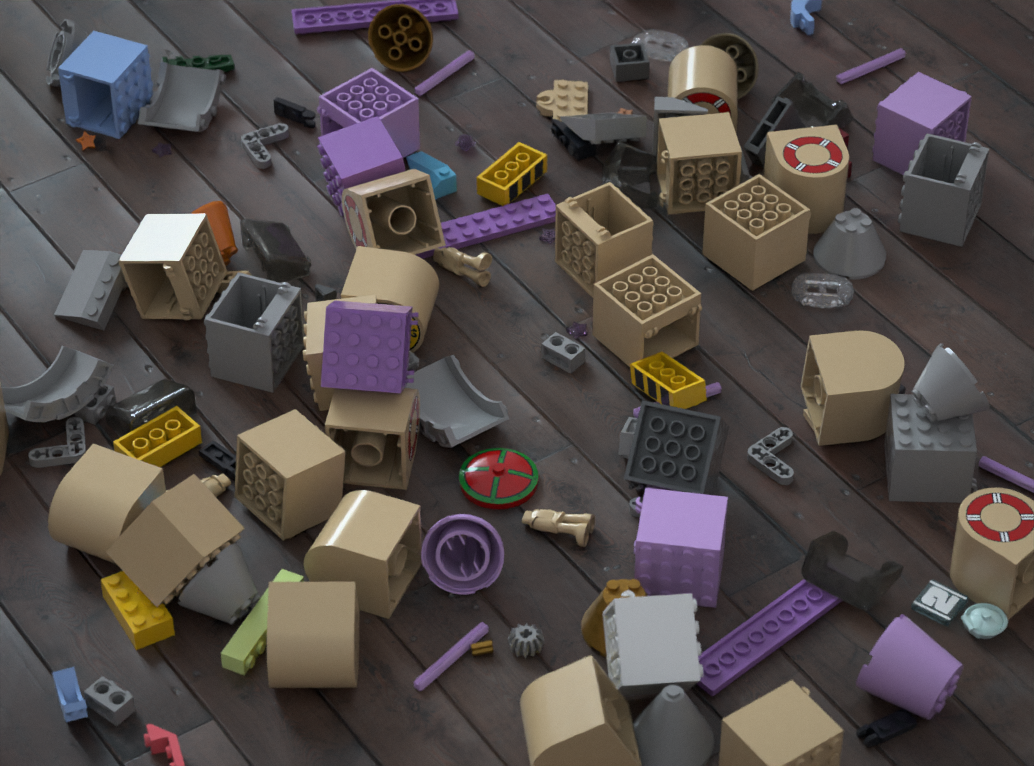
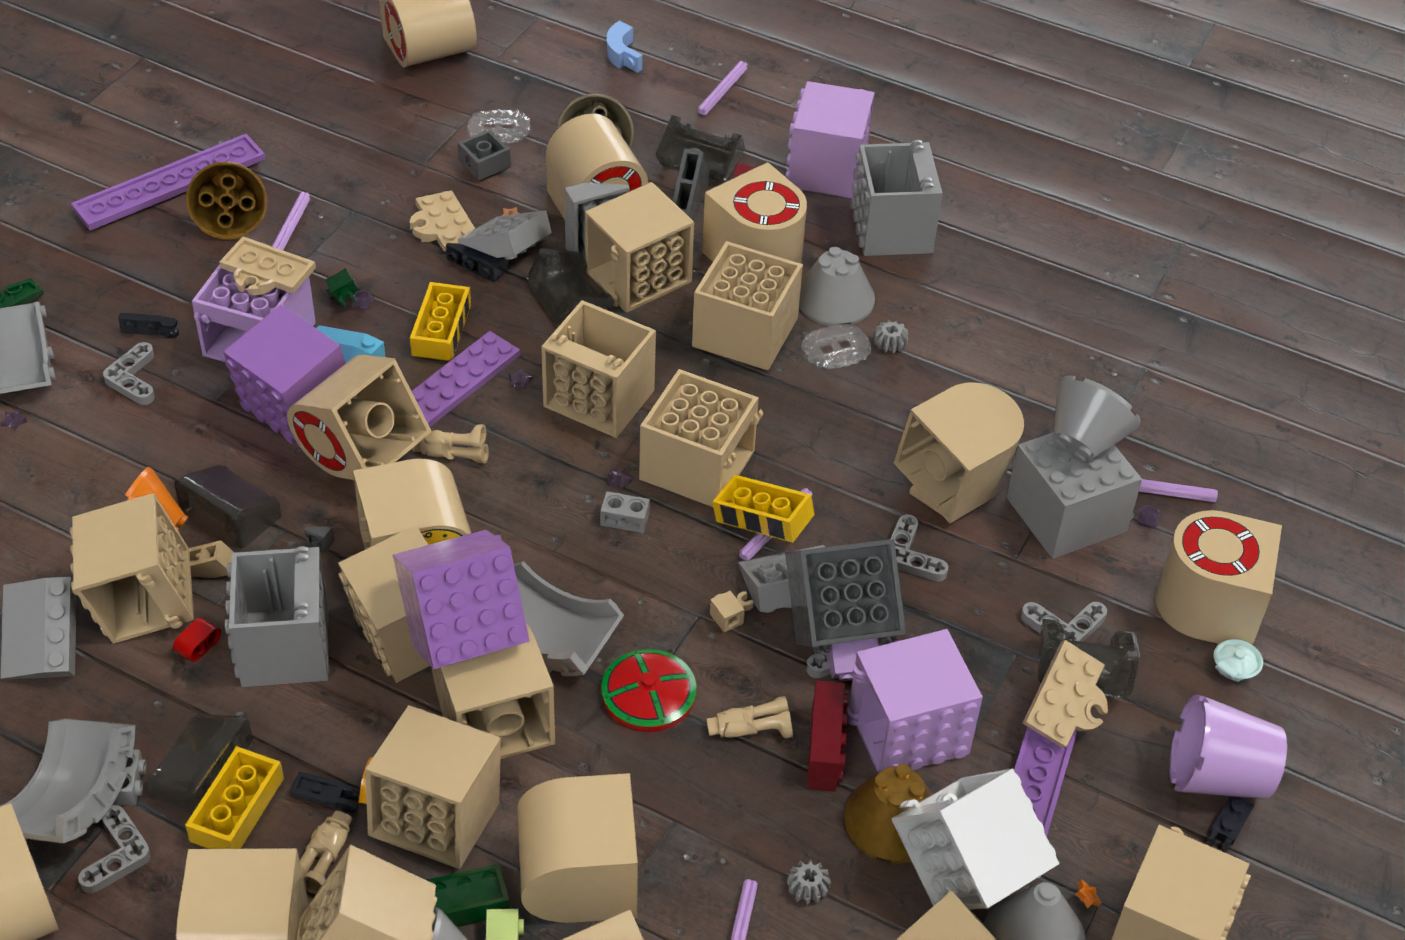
camera: 30 degrees left, 5 degrees up
(193, 334) = (197, 639): none -> red beam
(268, 557) = (470, 893): none -> dark green slope
(382, 85) = (265, 267): none -> tan plate
(453, 127) = (341, 287): none -> dark green brick
(462, 554) = (687, 804): lavender cone -> none
(482, 648) = (766, 911): pearl gold piece -> none
(595, 445) = (728, 610): none -> tan brick
(604, 550) = (827, 736): none -> dark red brick
(810, 587) = (1067, 696): none -> tan plate
(872, 296) = (891, 336): none -> light grey gear
(887, 549) = (1070, 629): none -> light grey beam
(939, 602) = (1179, 656): tile -> none

